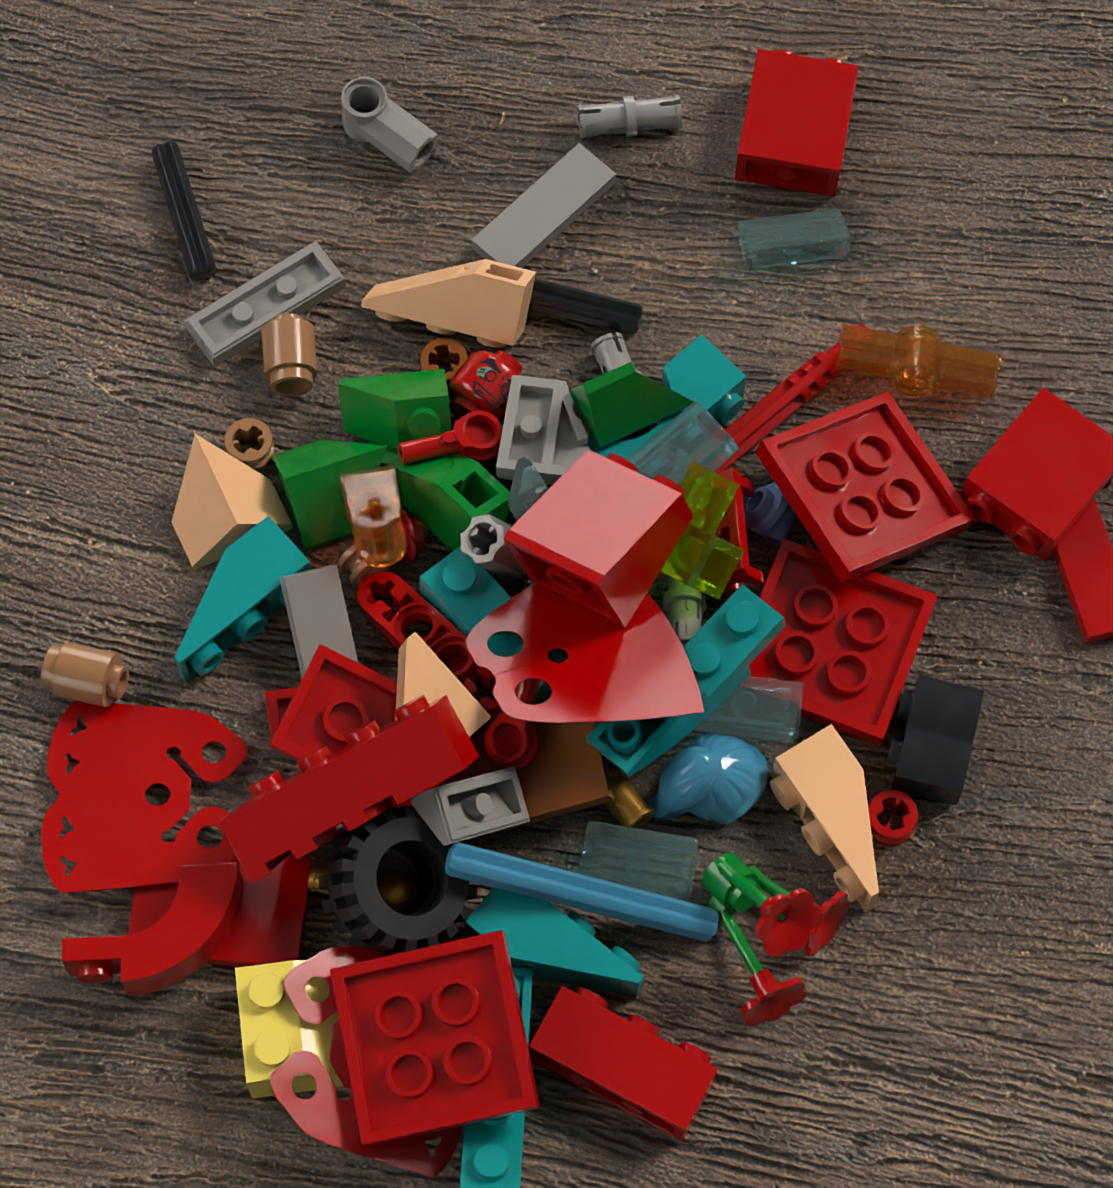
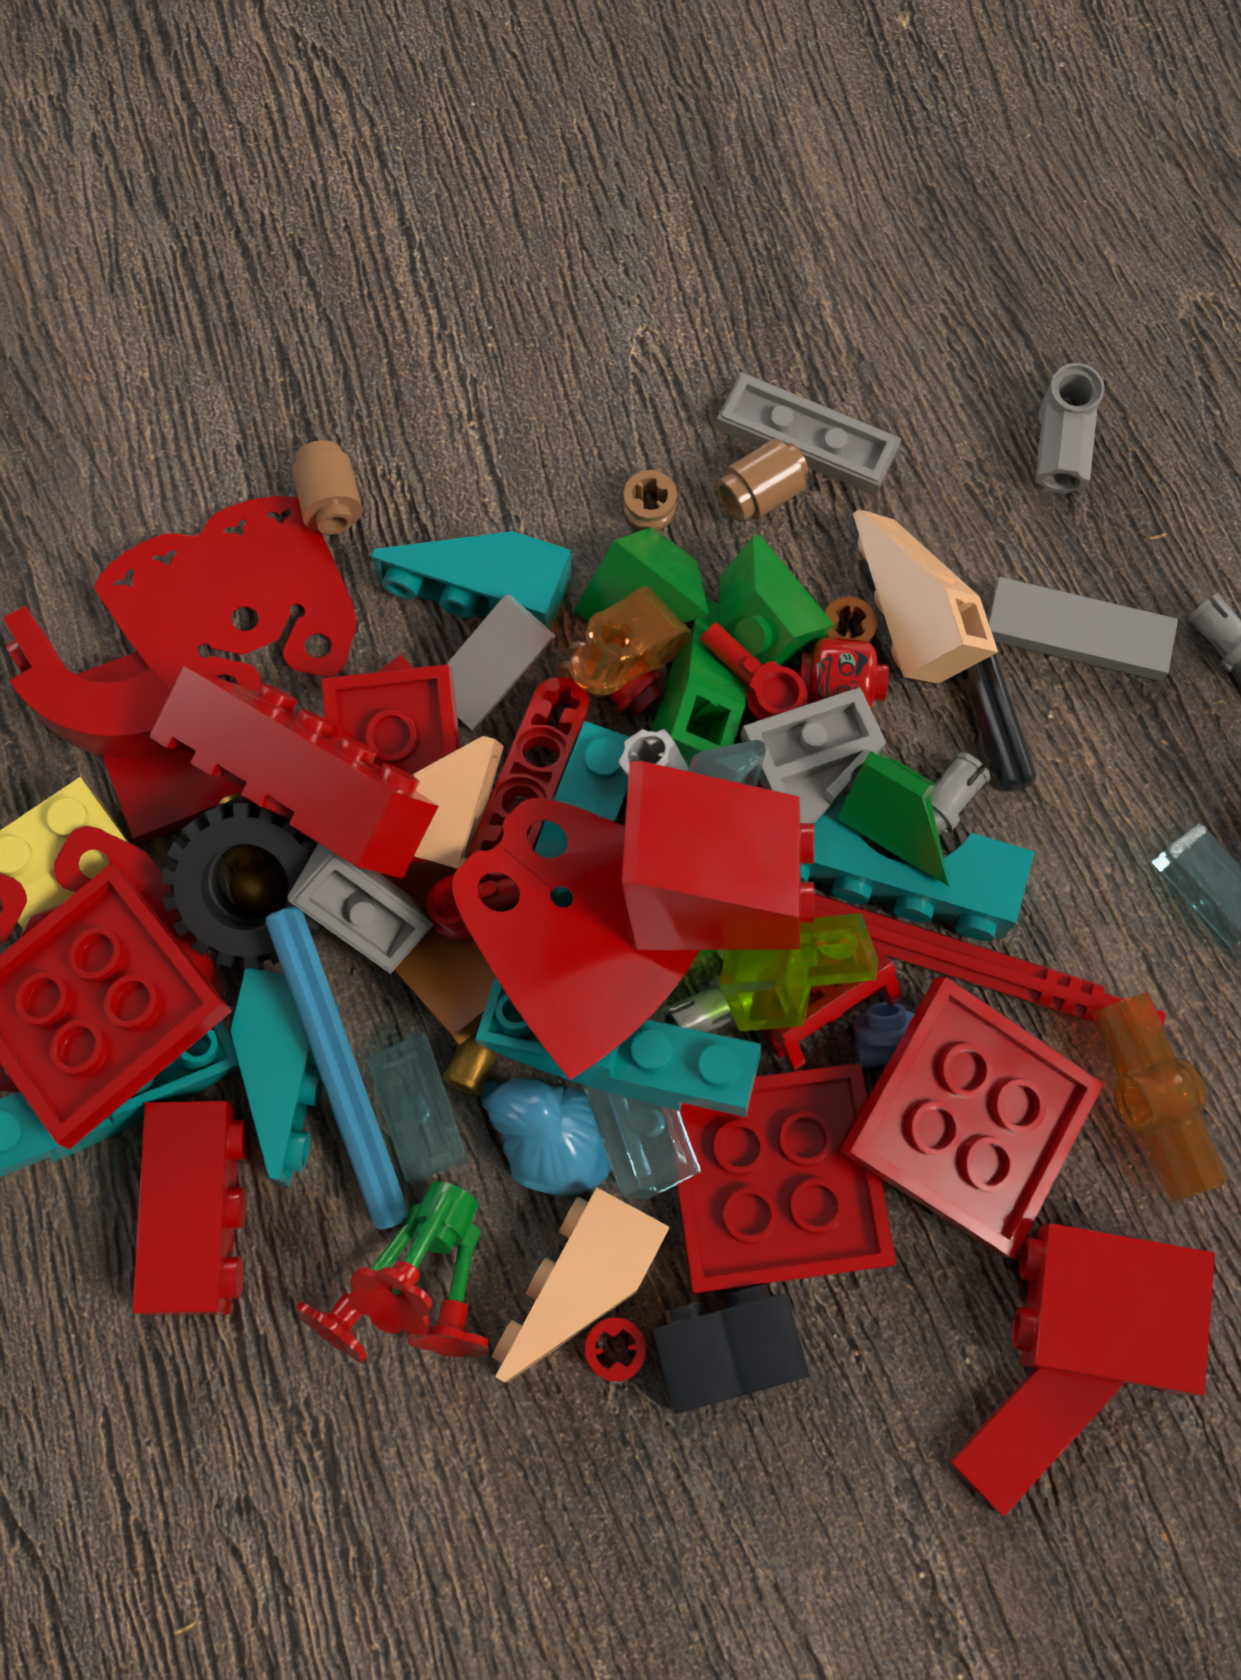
camera: 60 degrees right, 5 degrees up
(184, 211) = (855, 309): black axle -> none
(221, 503) = (572, 508): light nougat slope -> none
(687, 438) = (895, 904): clear light blue slope -> none

